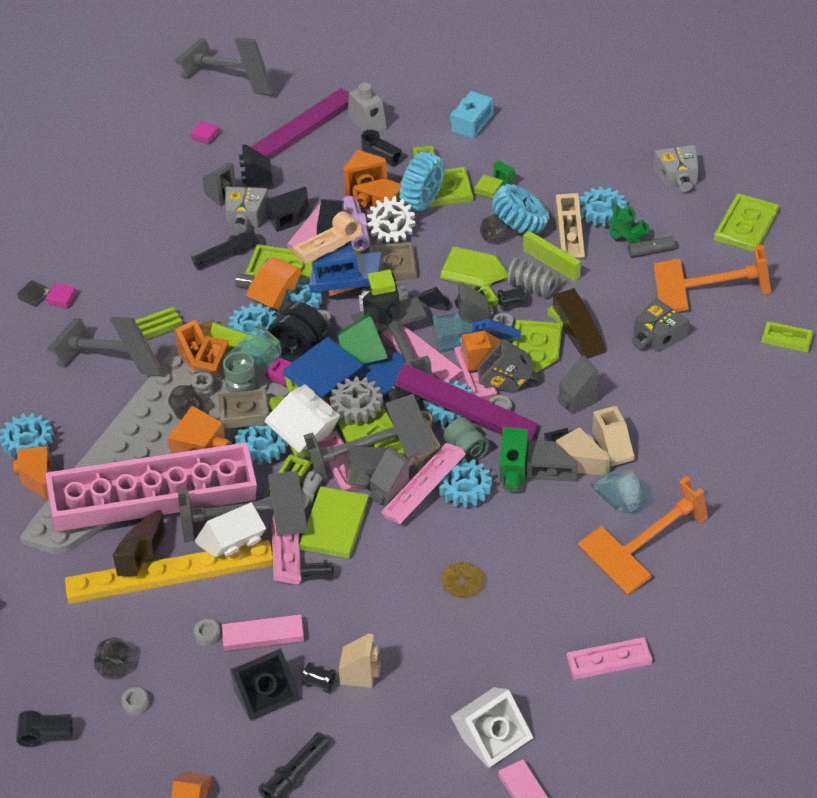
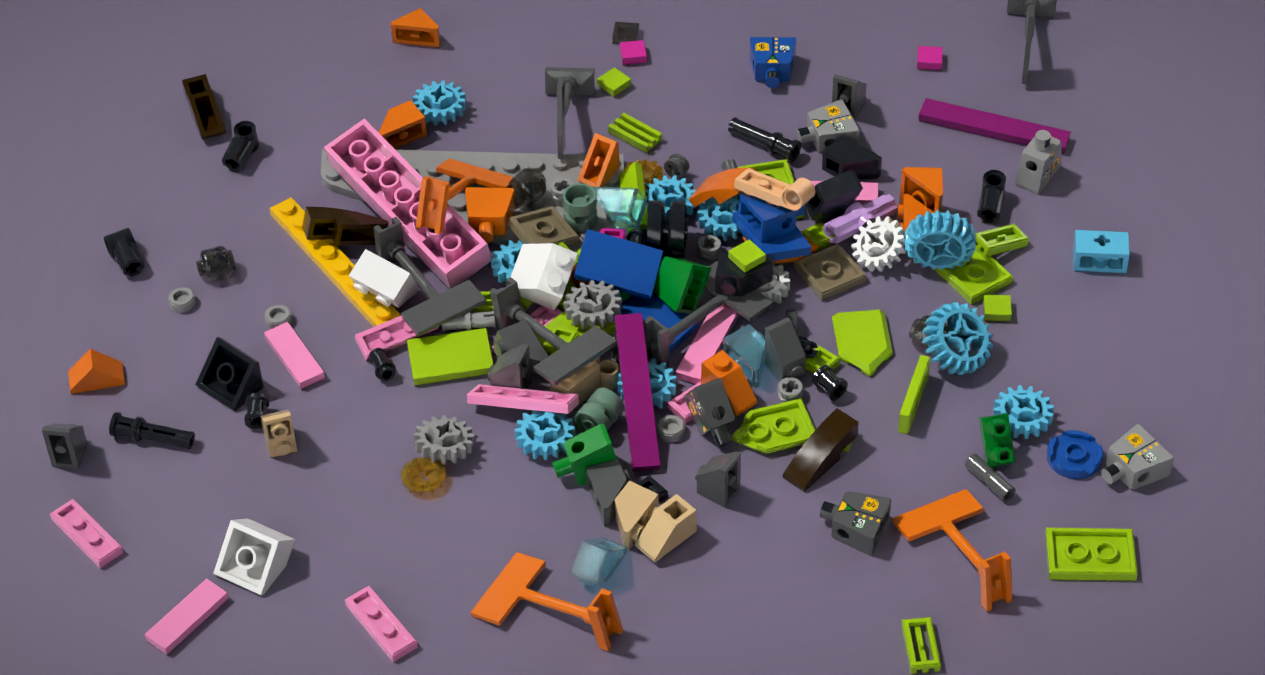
camera: 65 degrees right, 0 degrees up
(88, 316) = (614, 81): none -> lime tile
(141, 215) = (772, 59): none -> blue torso
(188, 443) = (437, 193): none -> orange piece
(211, 356) = (590, 173): orange slope -> none
(218, 309) = (676, 165): none -> dark grey bush
(257, 169) = (885, 111): black slope -> none
(435, 550) = (443, 439): none -> light grey gear
(497, 329) = (757, 380): blue tile -> none
(504, 172) = (1018, 311): green tile -> none
(532, 280) = (866, 387): light grey piece -> none
(569, 224) = (969, 393): tan slope -> none
(651, 198) = (1074, 454): none -> blue tile

